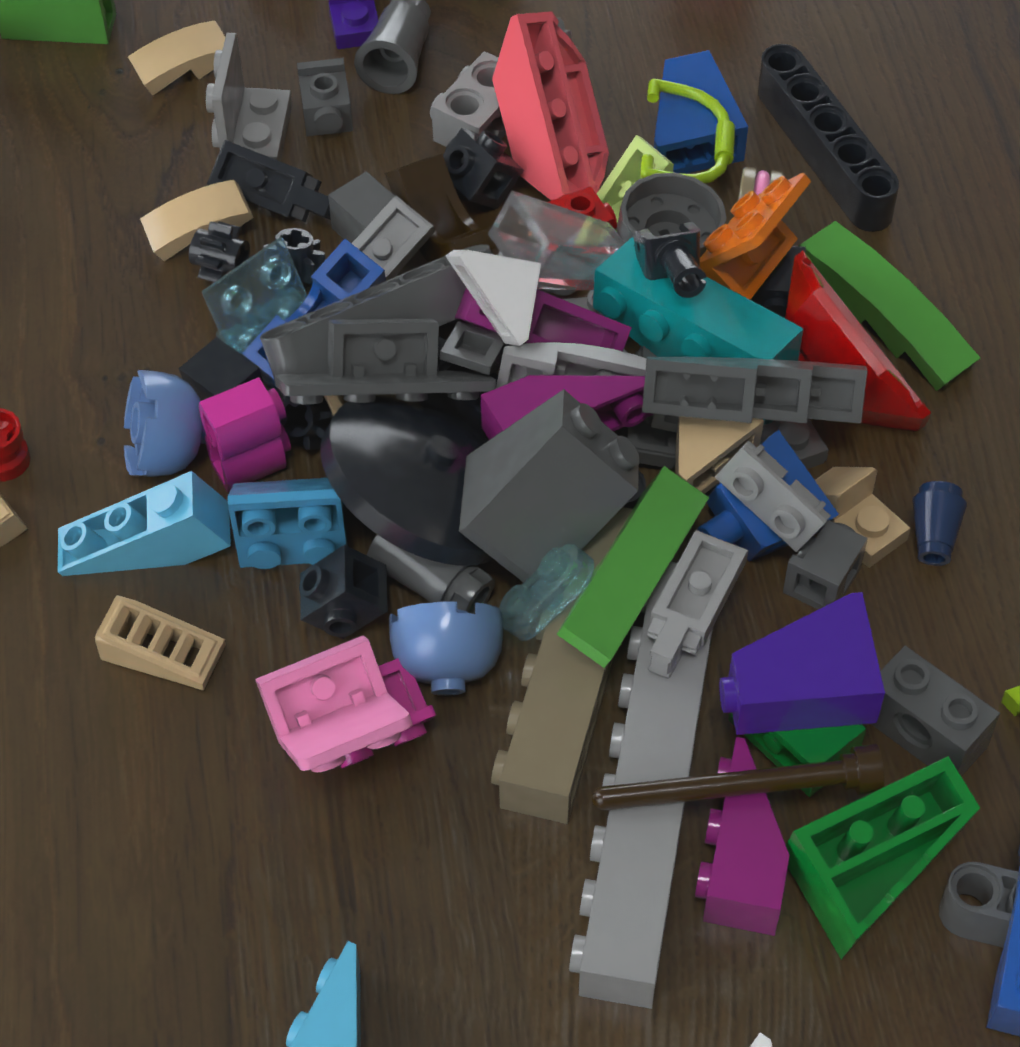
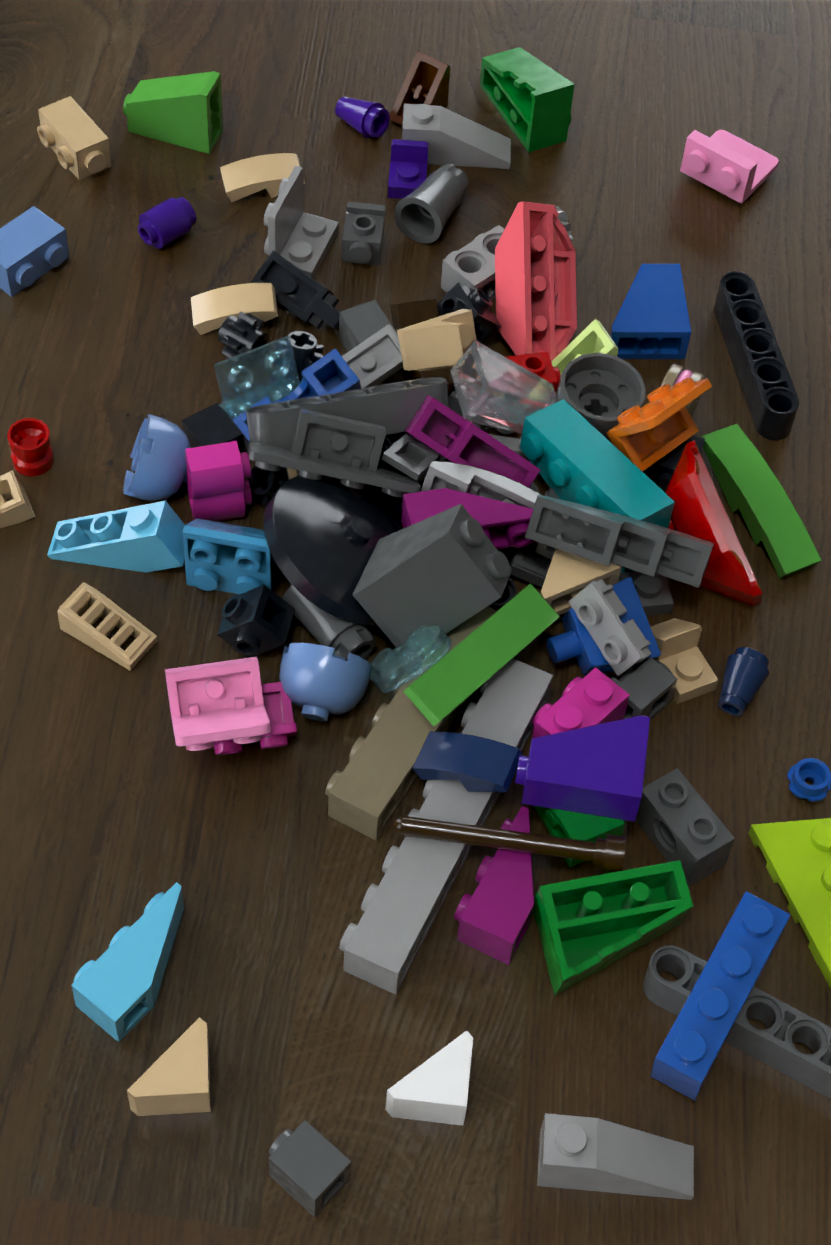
camera: 10 degrees right, 0 degrees up
(83, 135) = (166, 222): none -> dark purple brick
(459, 203) = (437, 340): none -> tan slope
(502, 289) = (441, 415): white slope -> none
(663, 697) = (473, 760): none -> dark blue slope
(672, 257) = (587, 422): black piece -> none
(693, 599) = (521, 690): light grey hinge -> none
(724, 129) = (668, 334): lime piece -> none
(770, 599) = (583, 704): none -> dark pink brick

